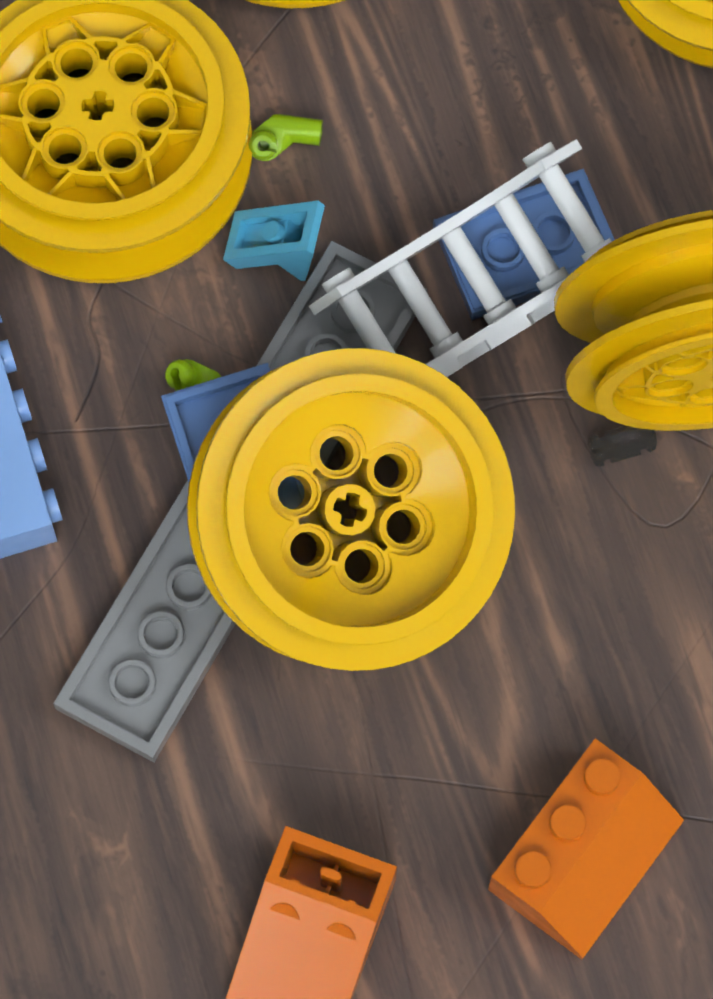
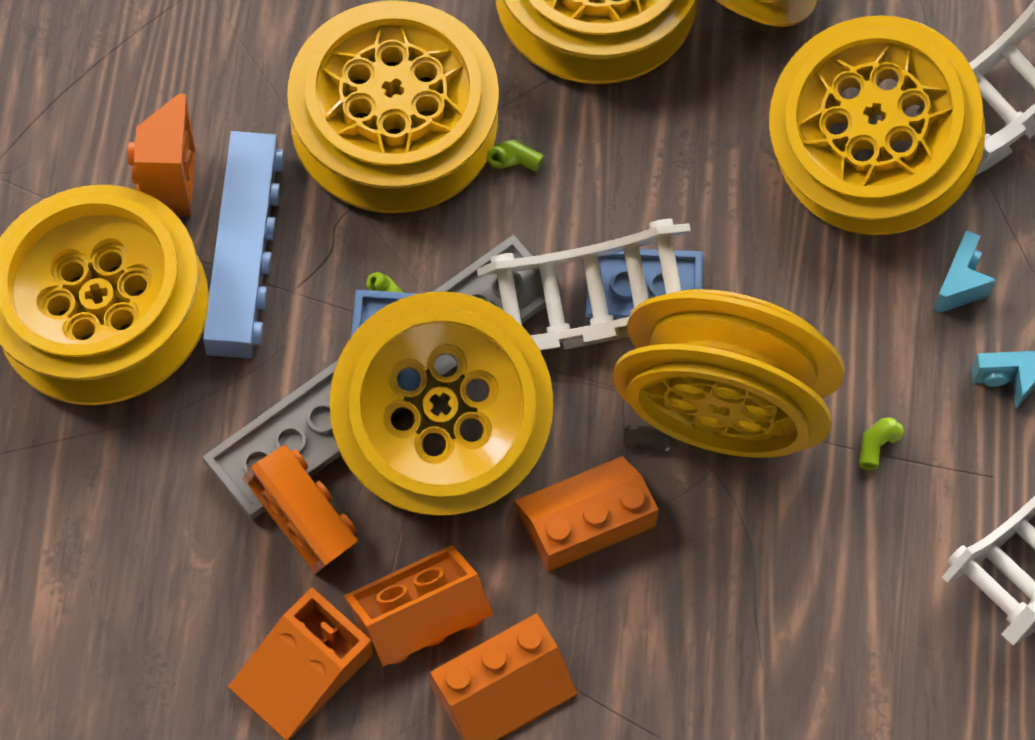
camera: 20 degrees right, 5 degrees down
(221, 723) = (300, 507): none -> orange slope
(275, 236) = (478, 217): medium azure slope -> none
(429, 787) = (419, 605): none -> orange slope
(590, 572) = (587, 512): none -> orange slope

